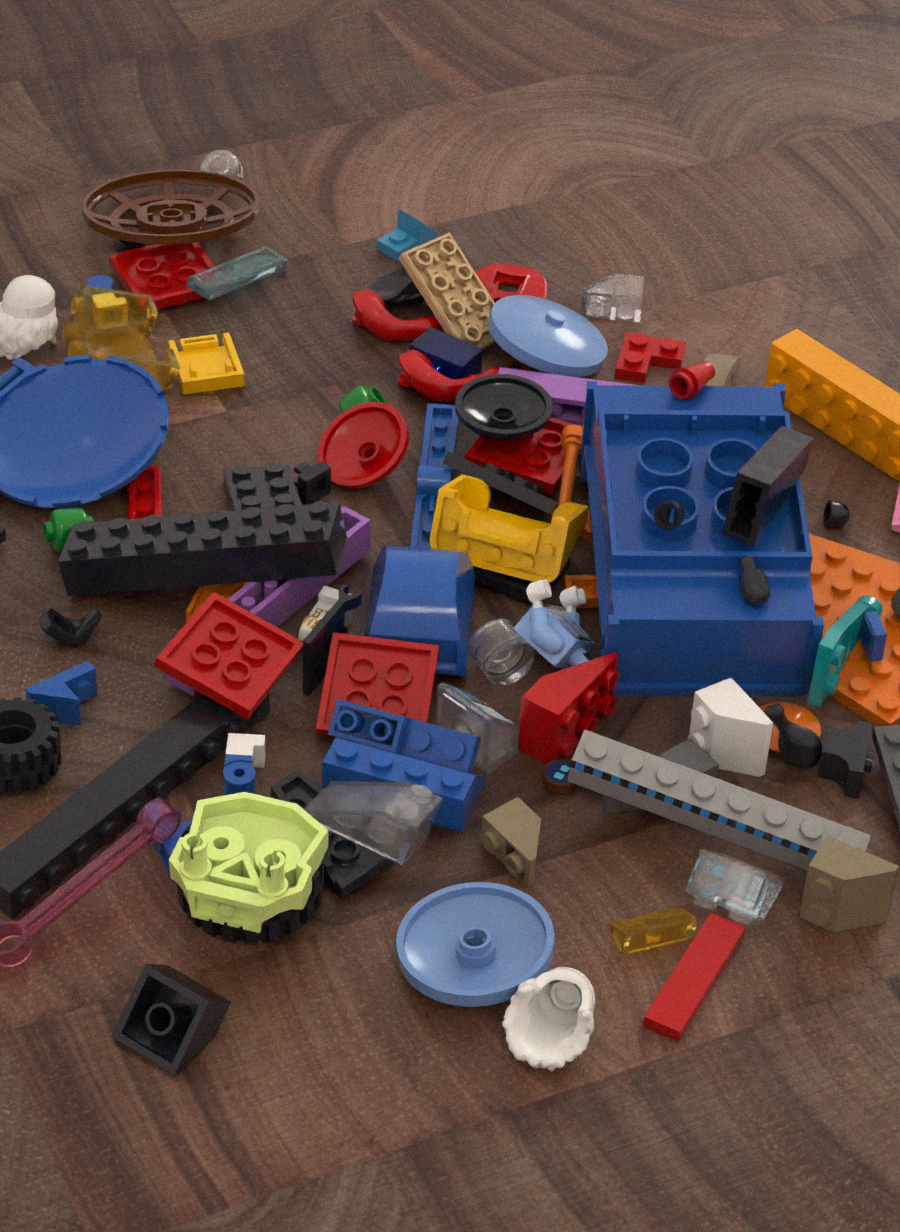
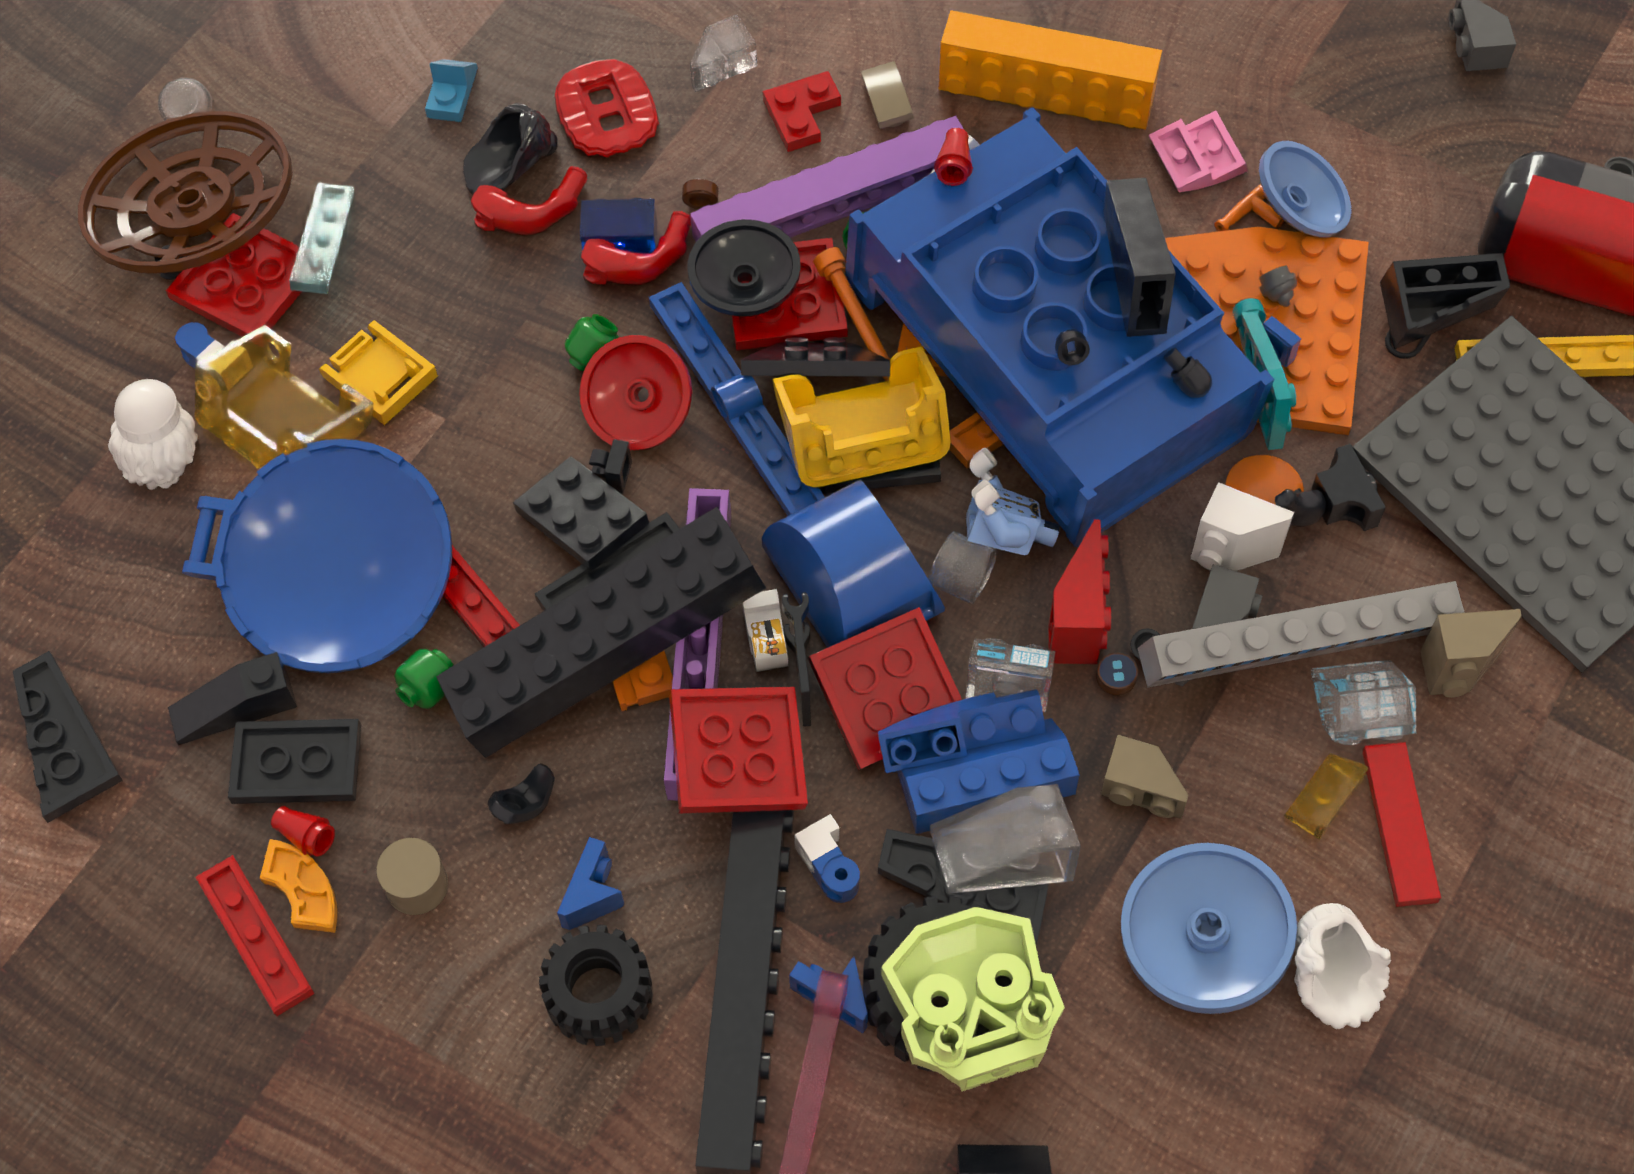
camera: 30 degrees left, 20 degrees up
(451, 289) = (576, 144): tan tile -> none
(547, 336) = (700, 144): medium blue dish -> none

